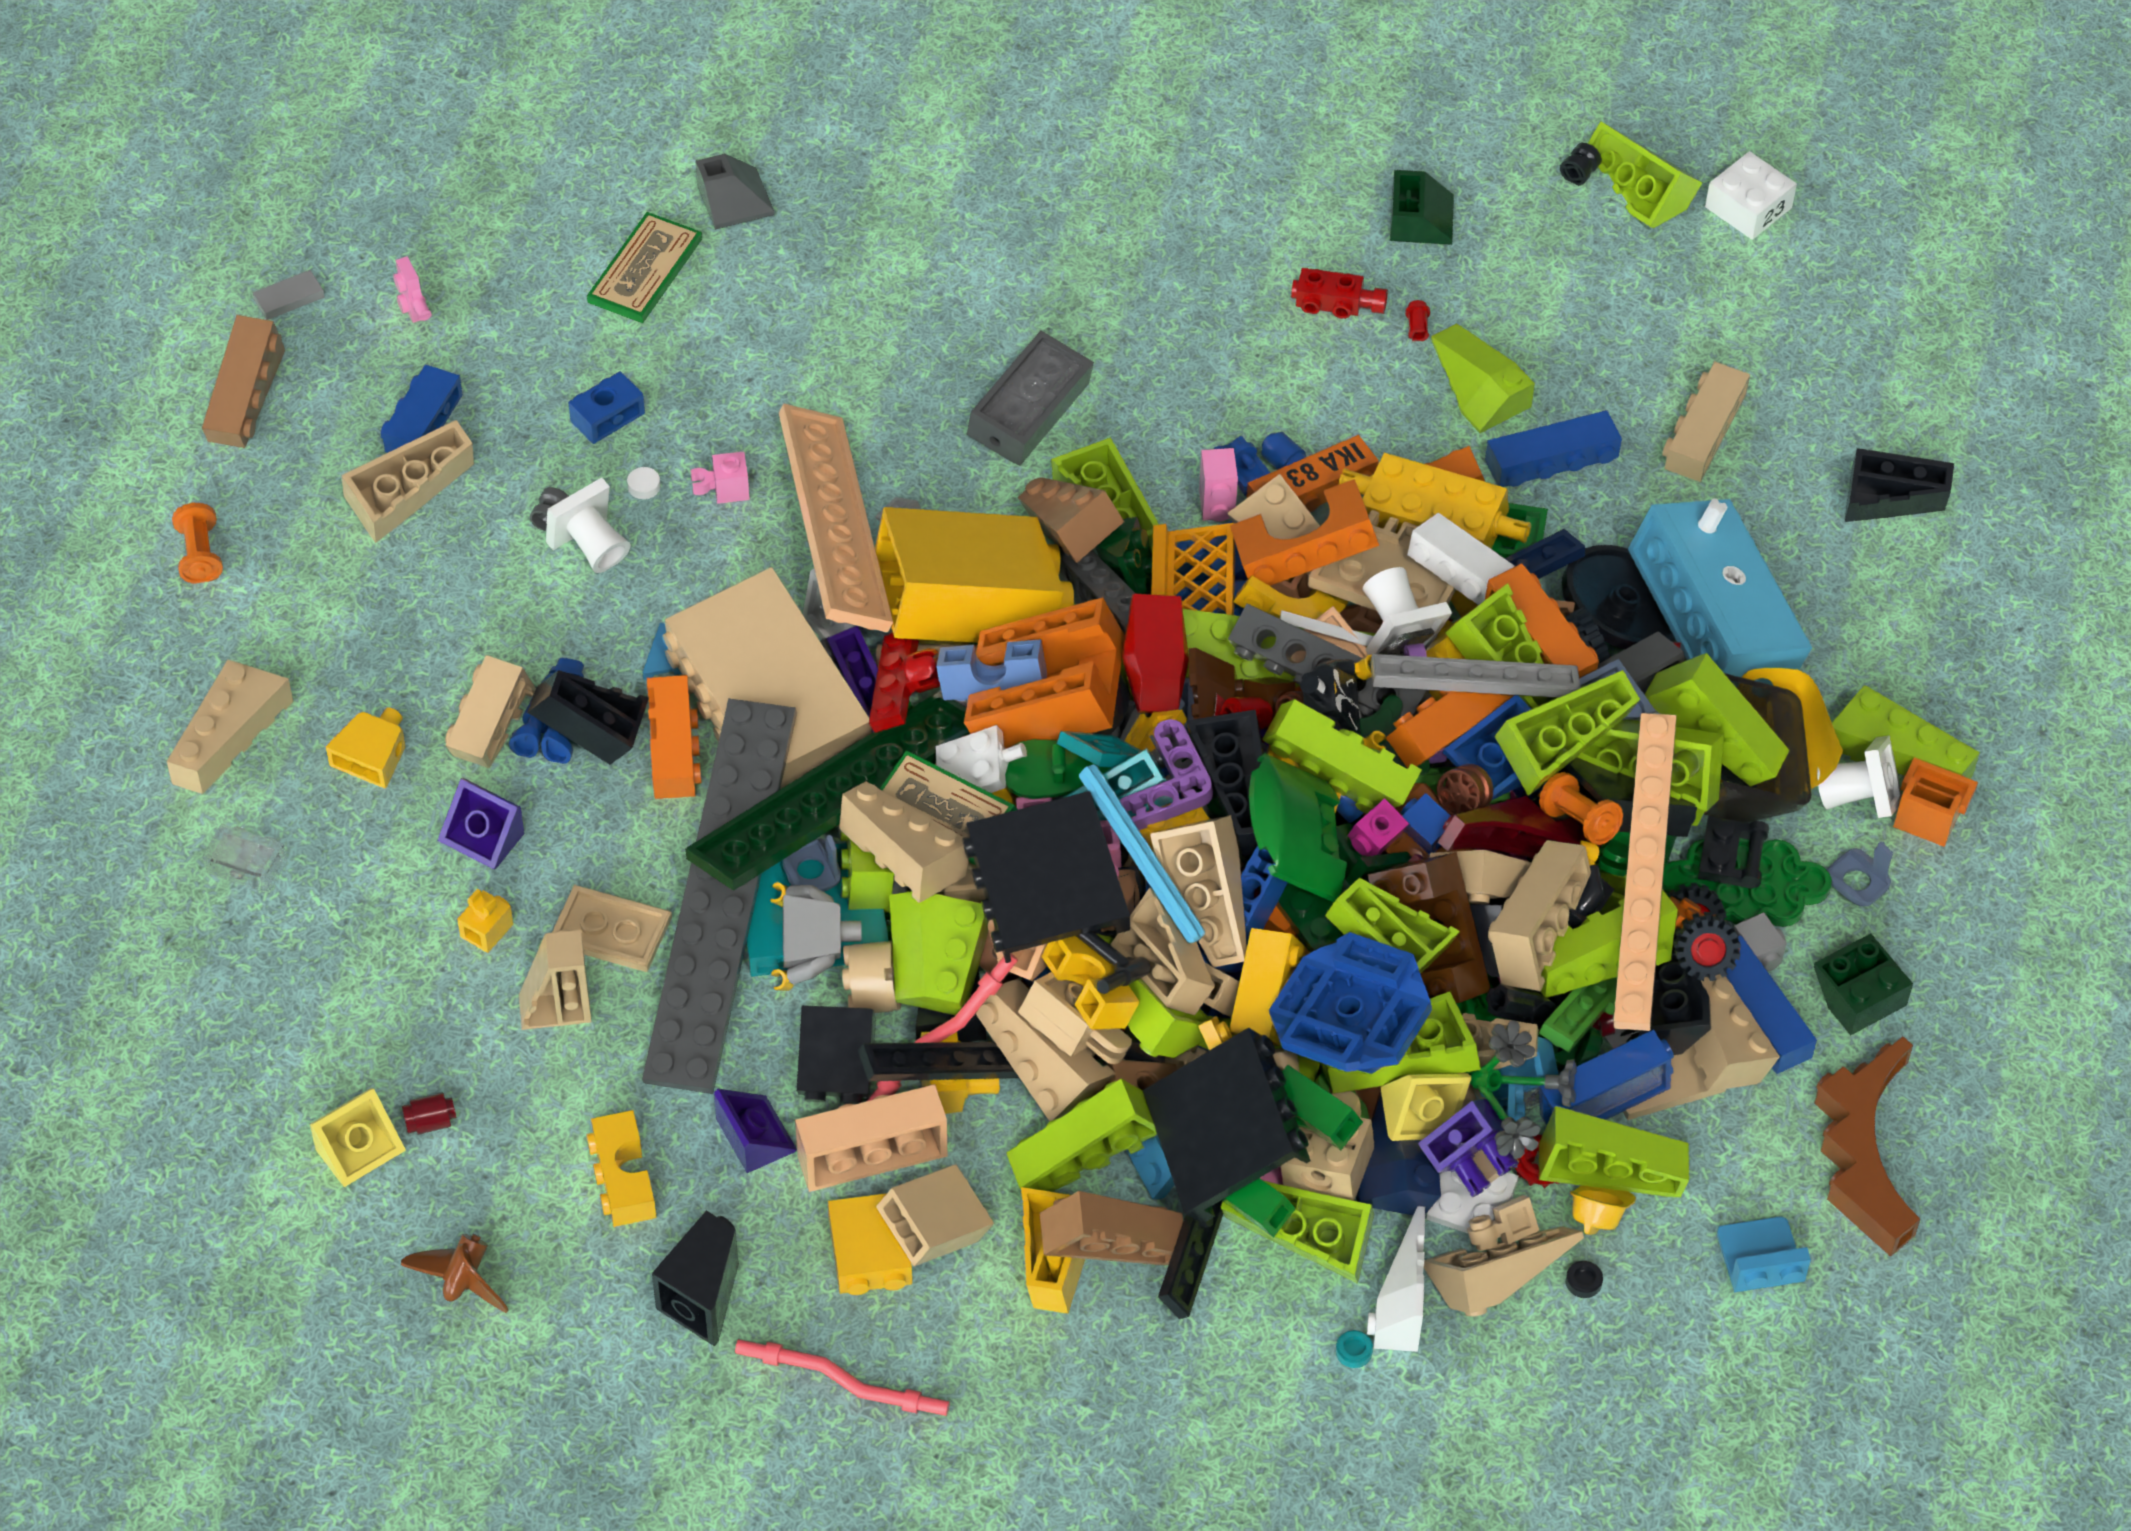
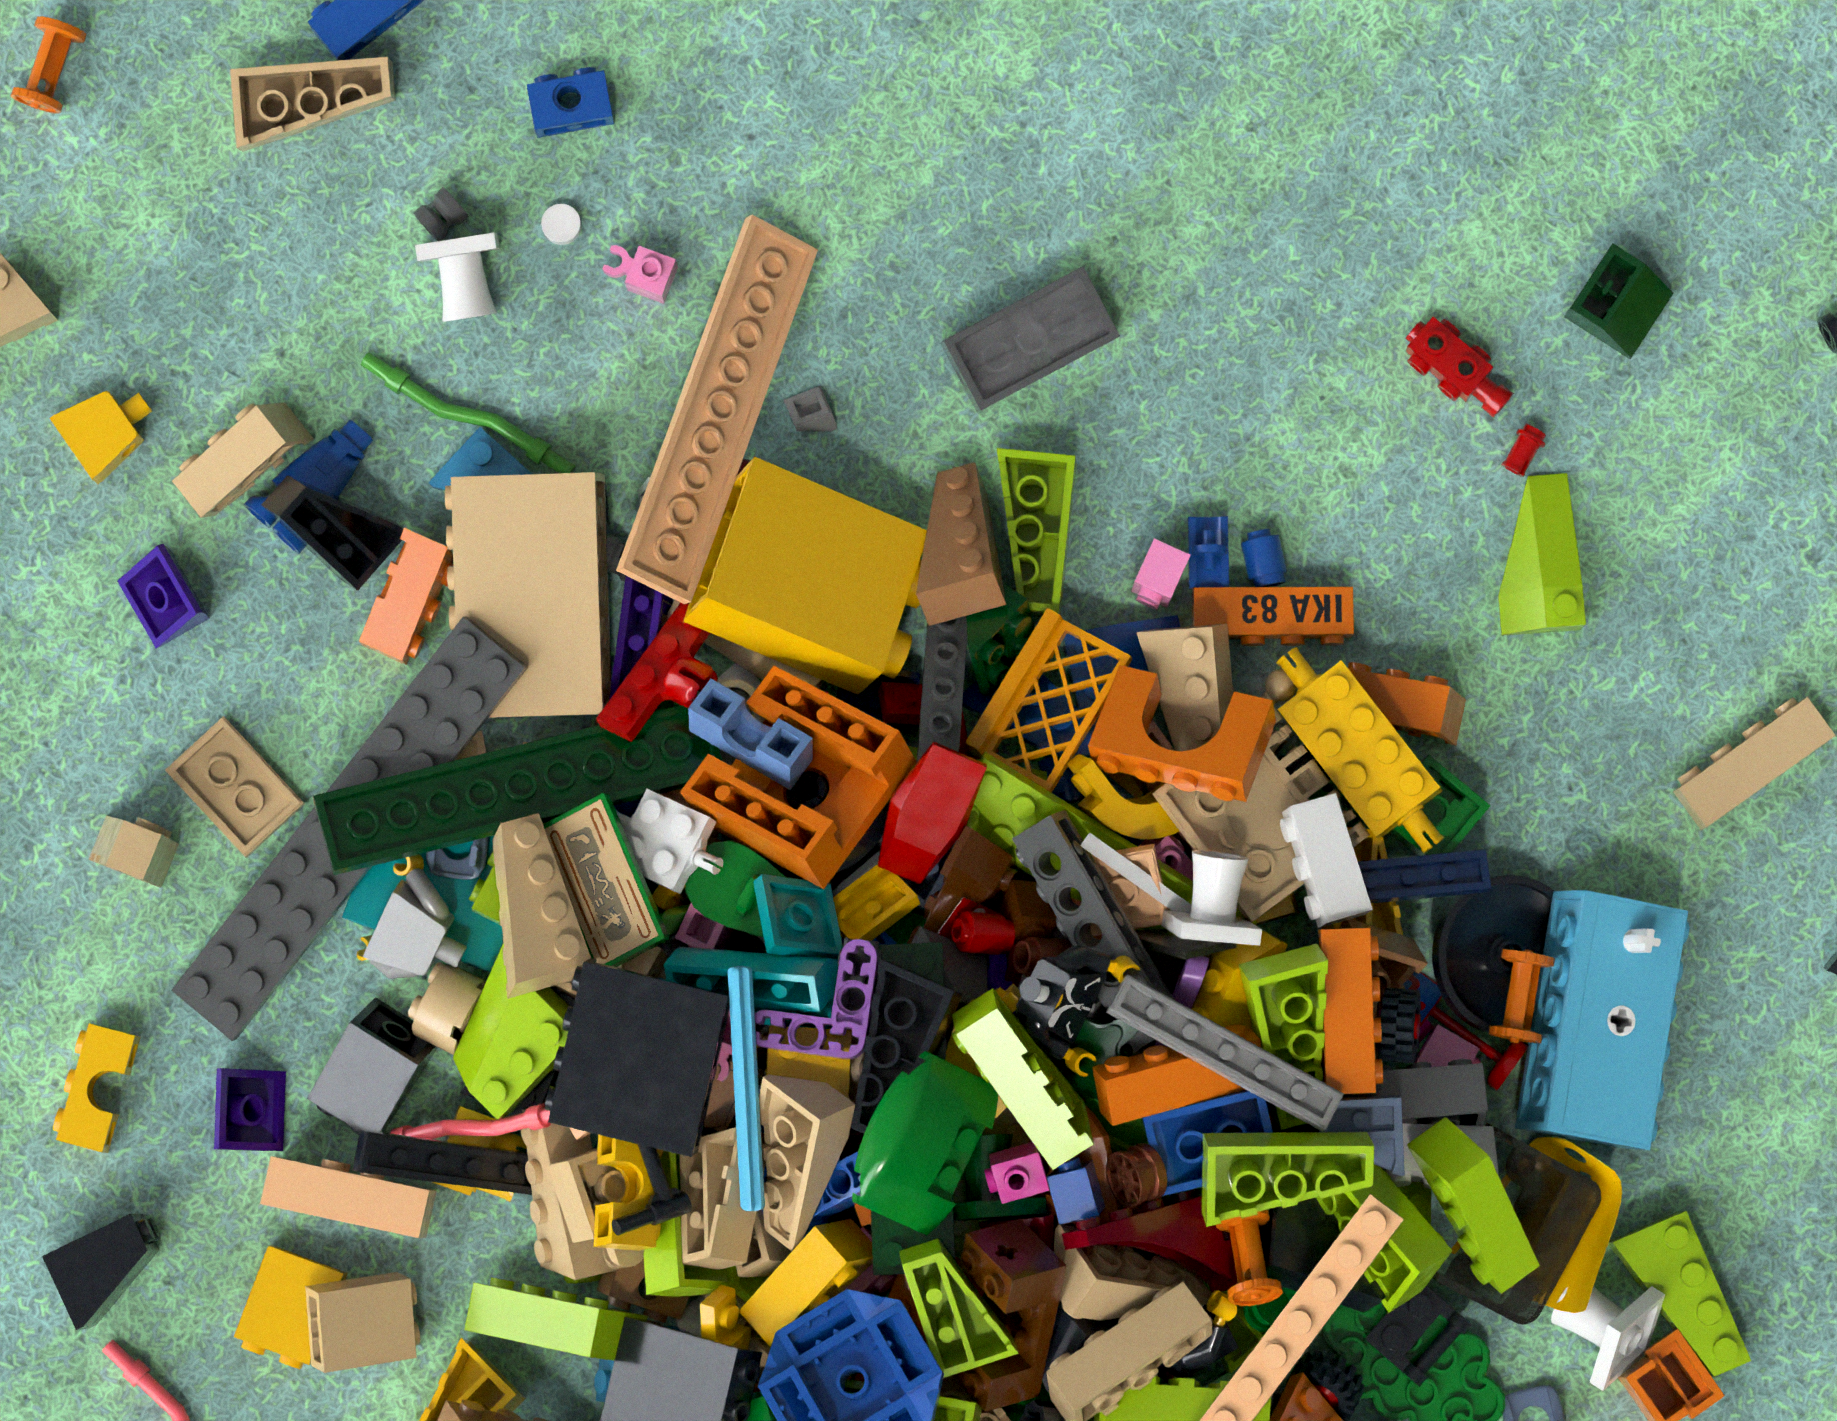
camera: 30 degrees right, 30 degrees up
(485, 920) = (111, 716): yellow brick -> none
(581, 622) = (399, 381): none -> bright green bar
(1553, 449) = (1560, 710): blue brick -> none
(1642, 583) = (1521, 996): none -> orange hose

